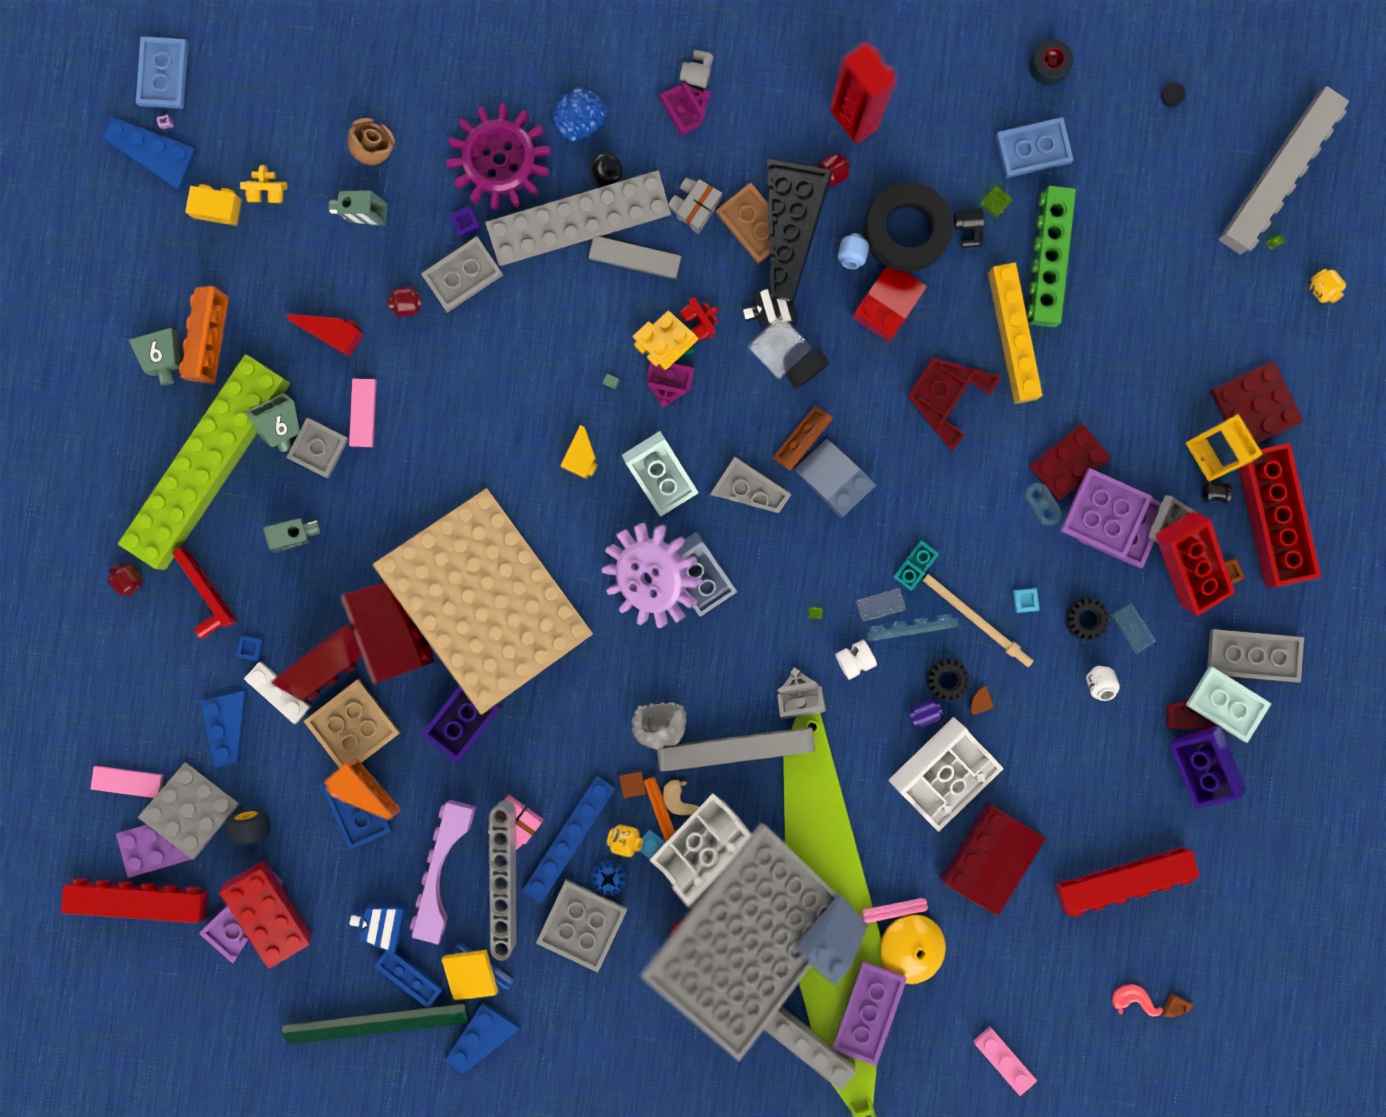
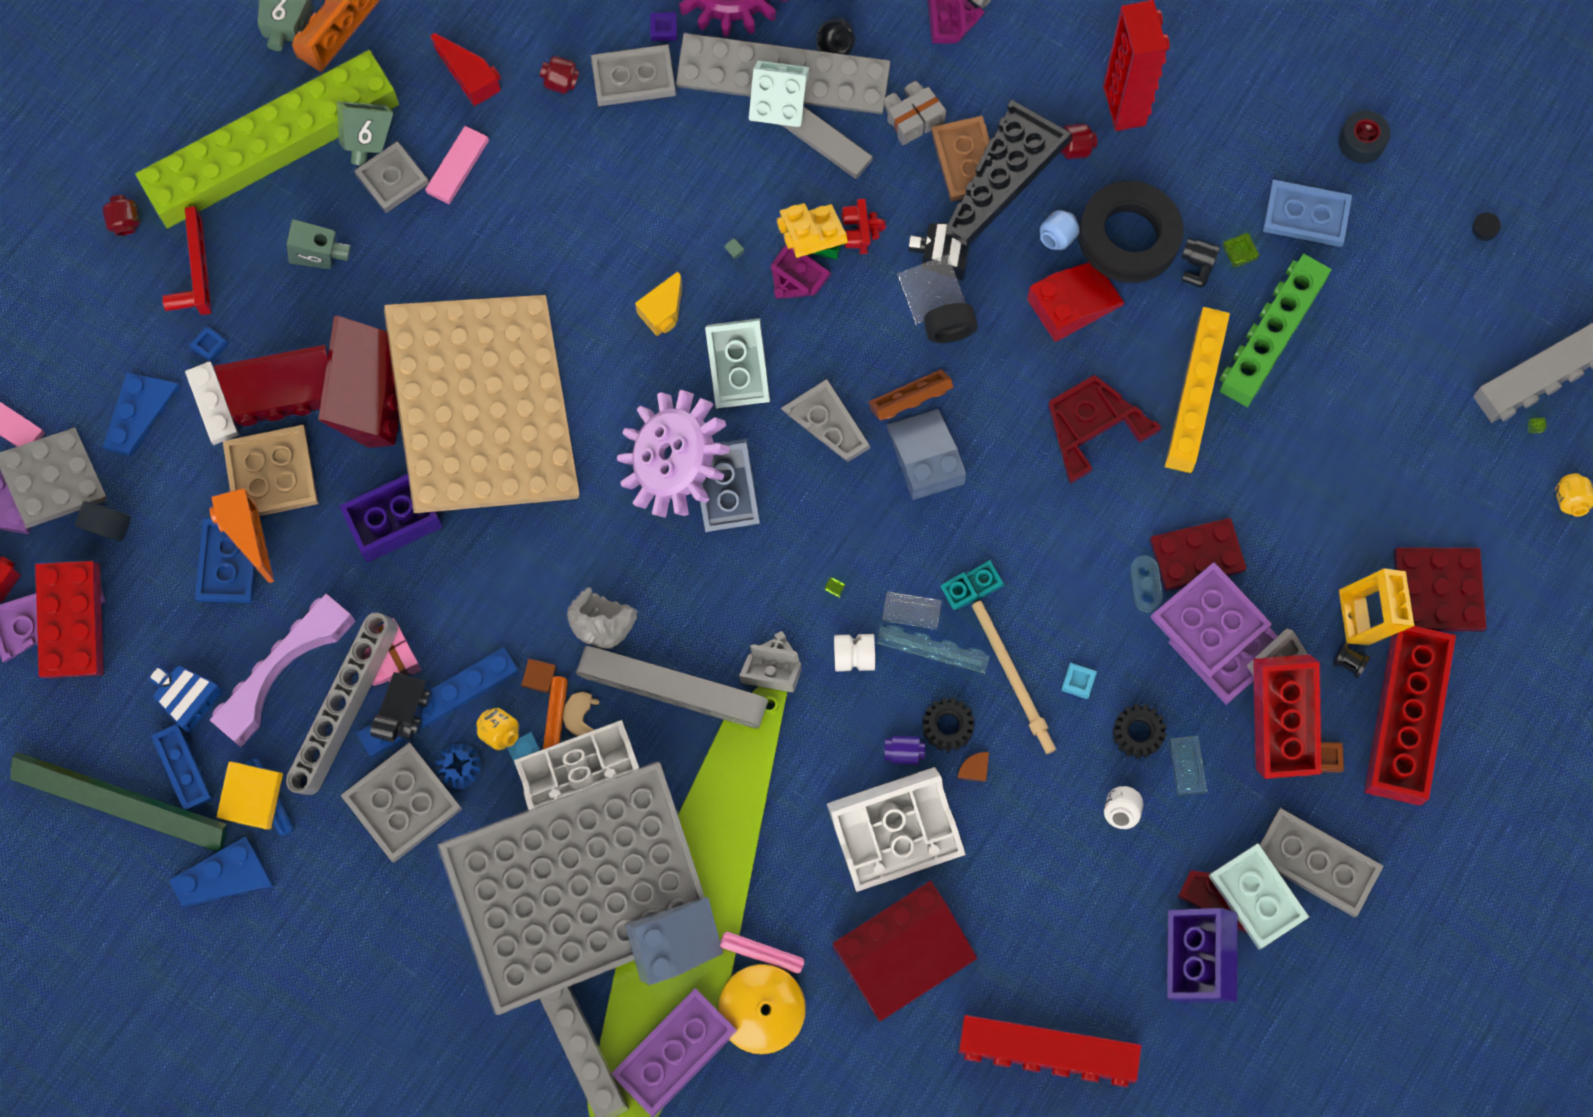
camera: 25 degrees right, 15 degrees down
(548, 863) = (401, 708): none -> black hinge
(585, 238) = (778, 93): none -> light aqua bracket

